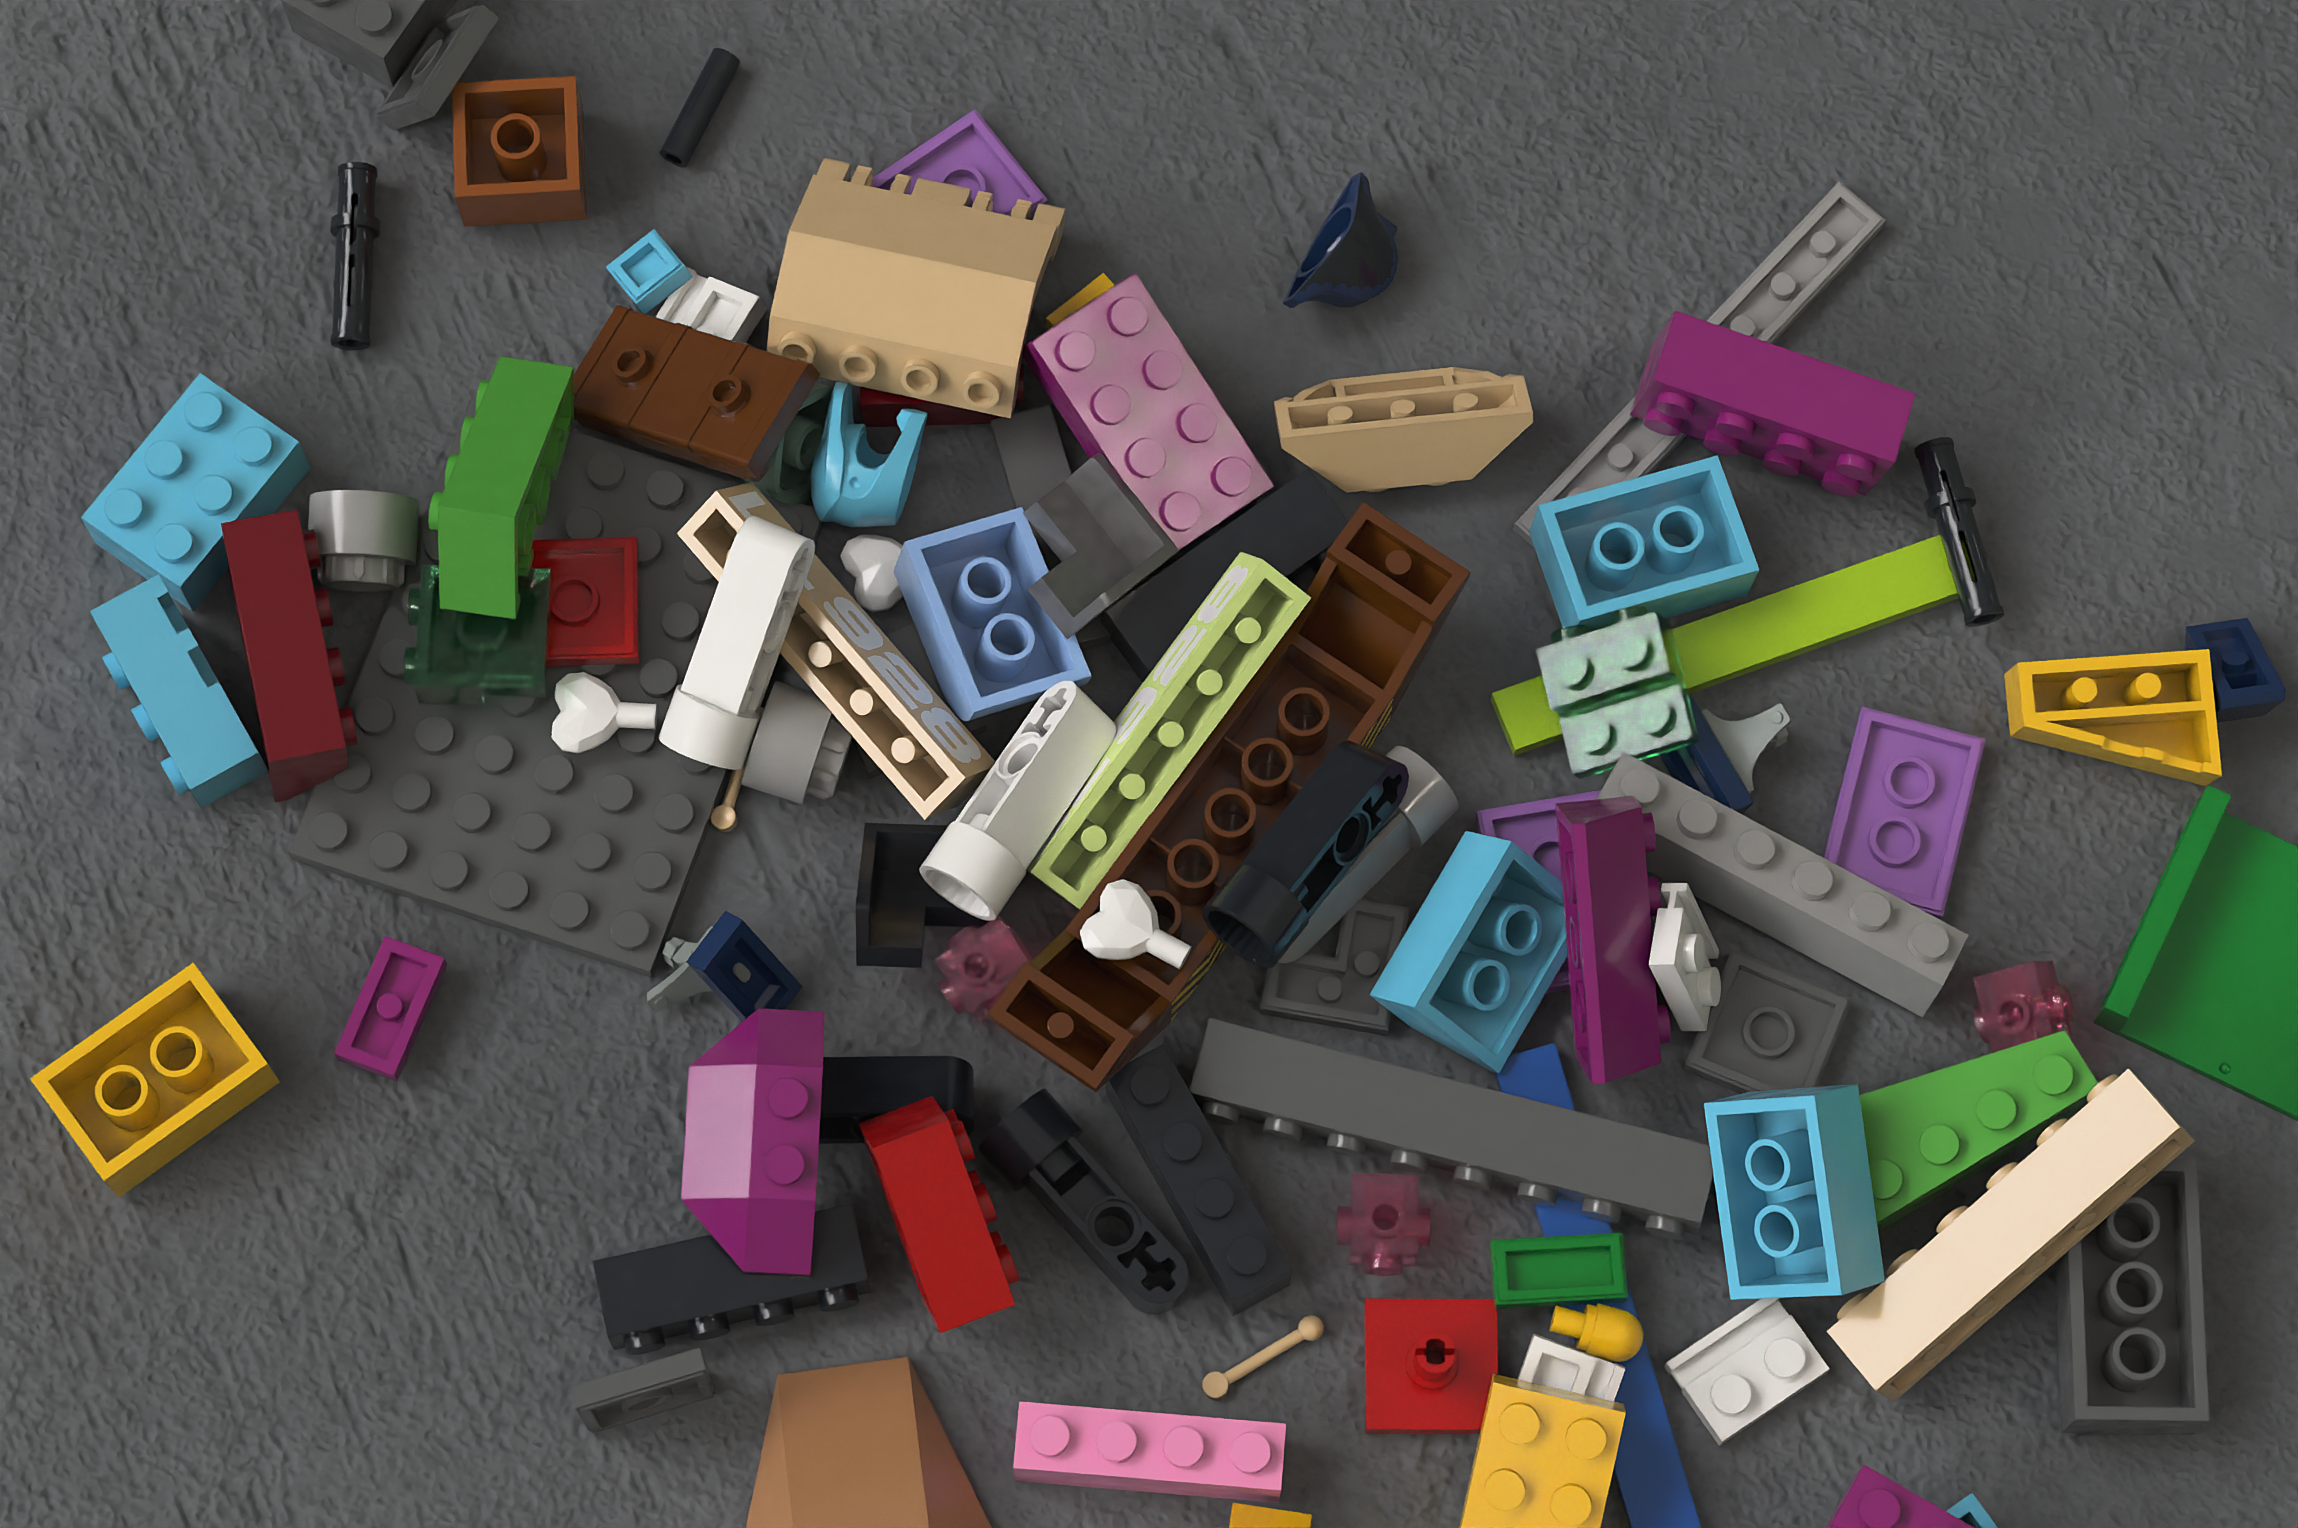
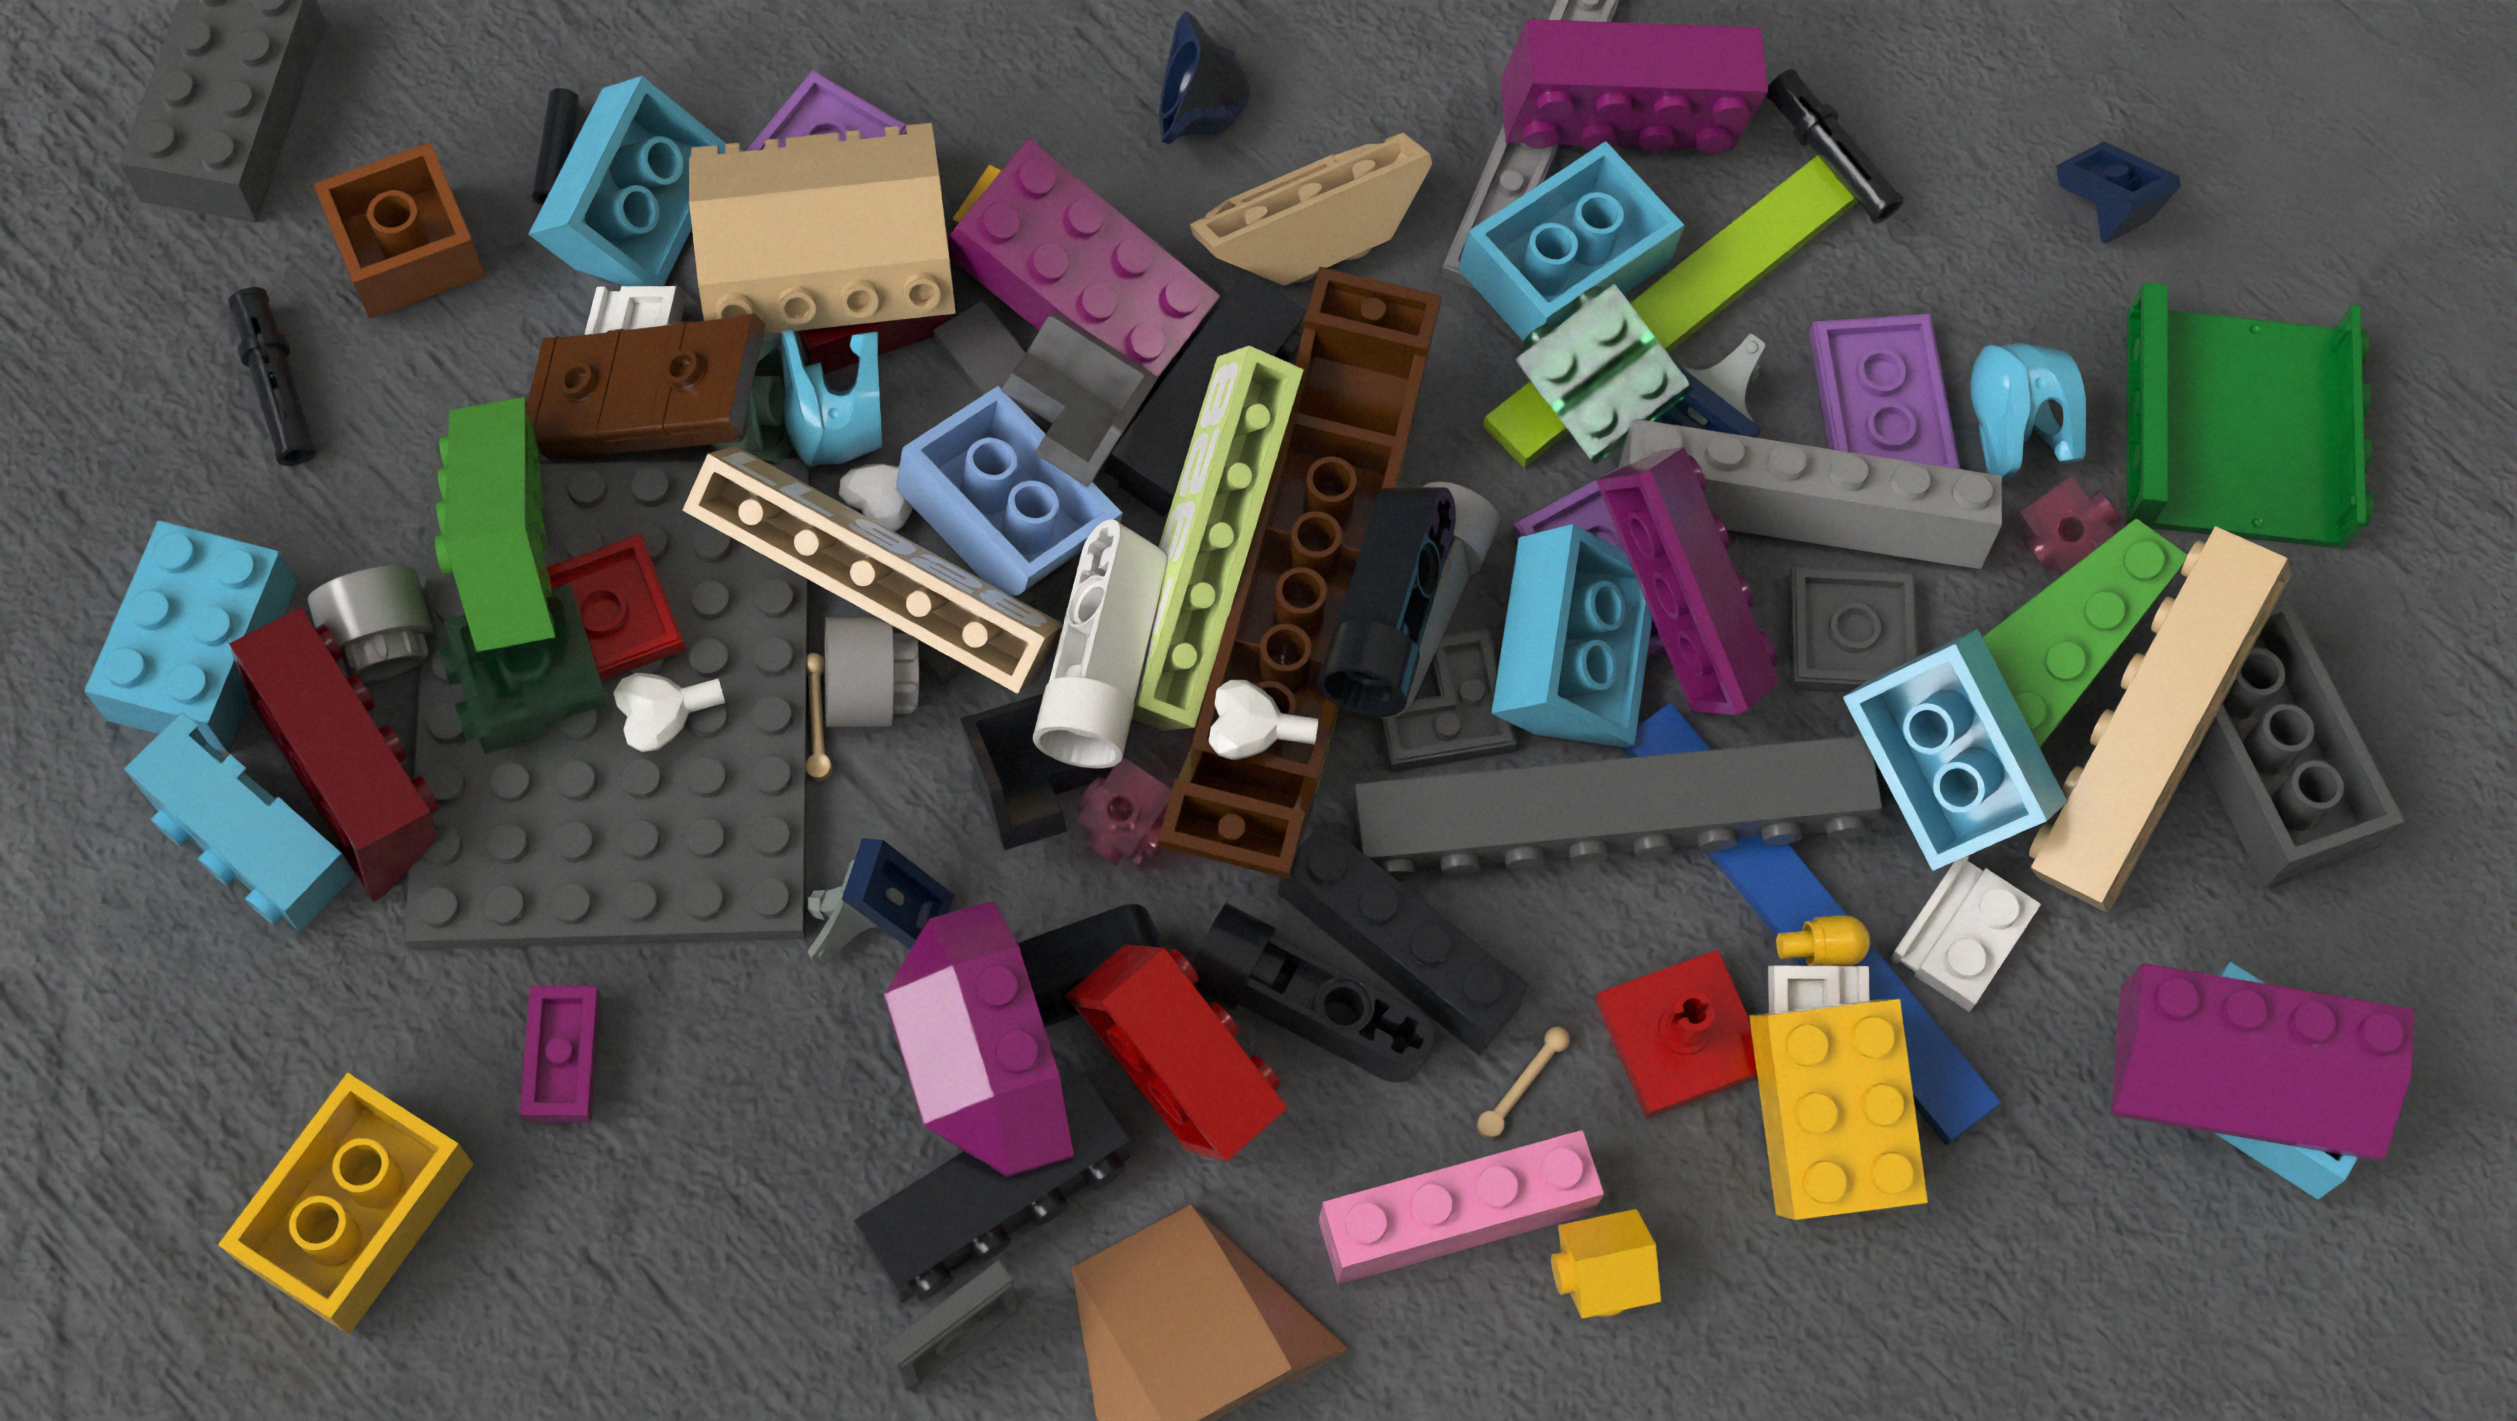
camera: 25 degrees left, 5 degrees down
(436, 67) = (292, 179): dark grey tile -> none
(649, 271) = (562, 301): medium azure tile -> none
(721, 696) = (782, 588): white beam -> none
(747, 174) = (625, 187): none -> medium azure slope
(1386, 1201) = (1588, 915): clear pink brick -> none
(1558, 1270) = (1764, 902): green tile -> none
(1681, 958) = (1765, 581): white plate -> none
(2030, 844) = (2011, 398): none -> medium azure helmet
(2122, 709) = (2041, 247): yellow wedge -> none

